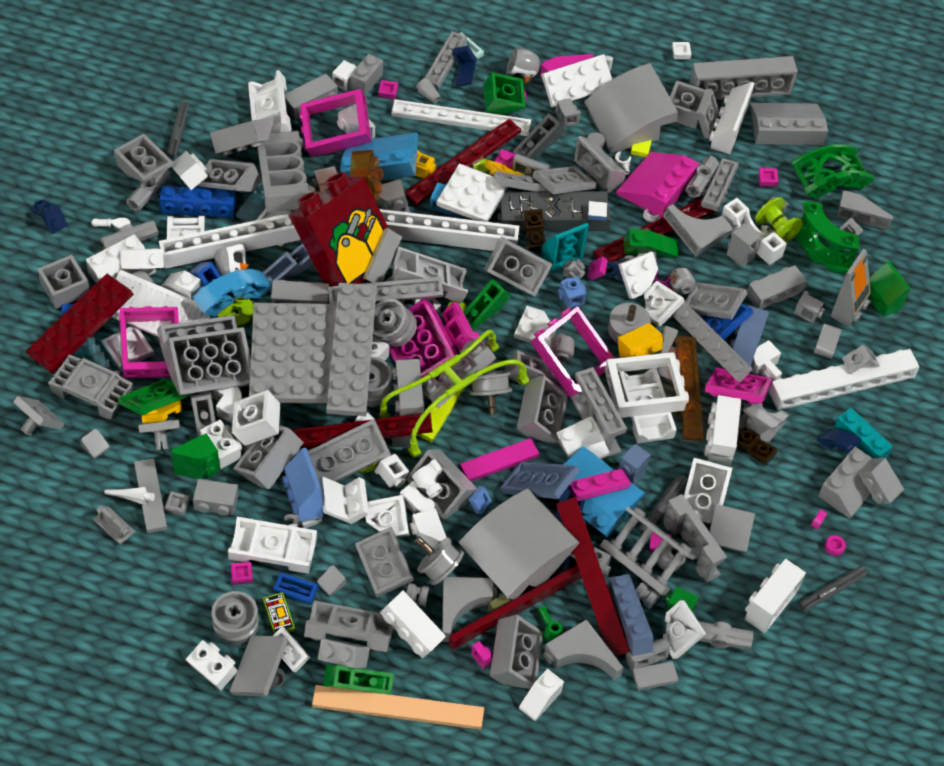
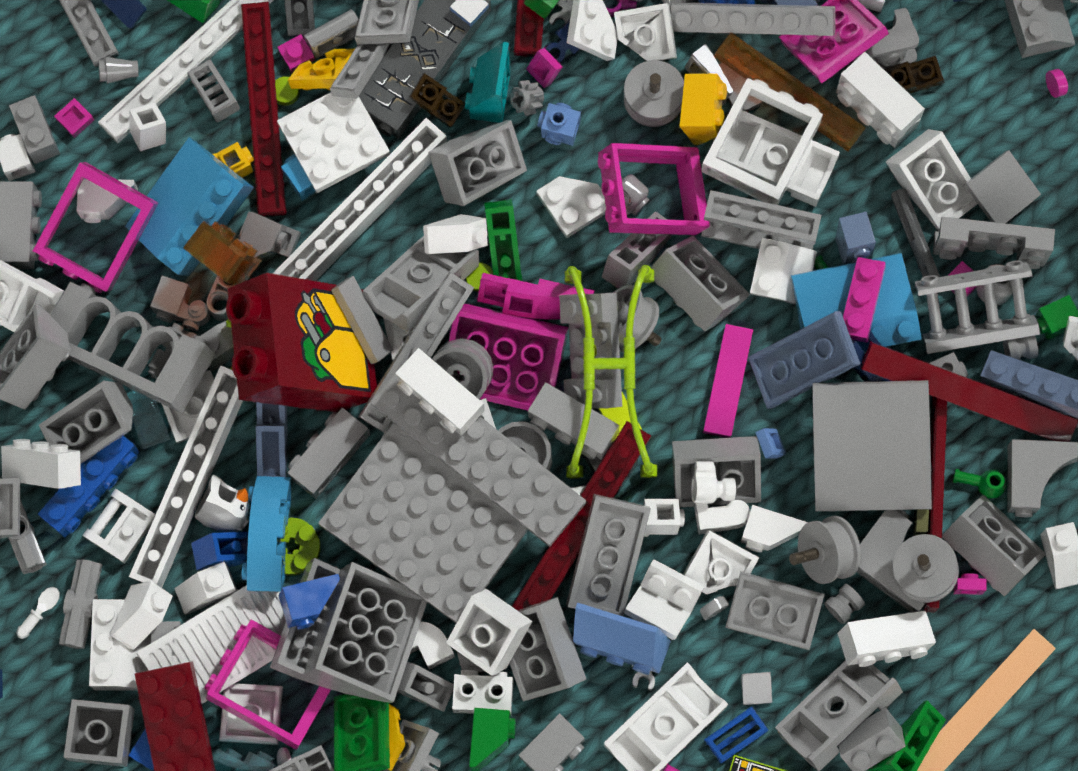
camera: 45 degrees left, 20 degrees up
(205, 318) = (306, 600): none -> blue slope
(361, 529) = (713, 607): none -> light grey tile
(367, 304) = (439, 392): none -> white brick
(408, 117) = (147, 126): none -> white brick
(447, 141) = (223, 105): none -> light grey slope
(466, 274) = (455, 234): none -> white slope
(469, 614) = (925, 568): none -> light grey wheel

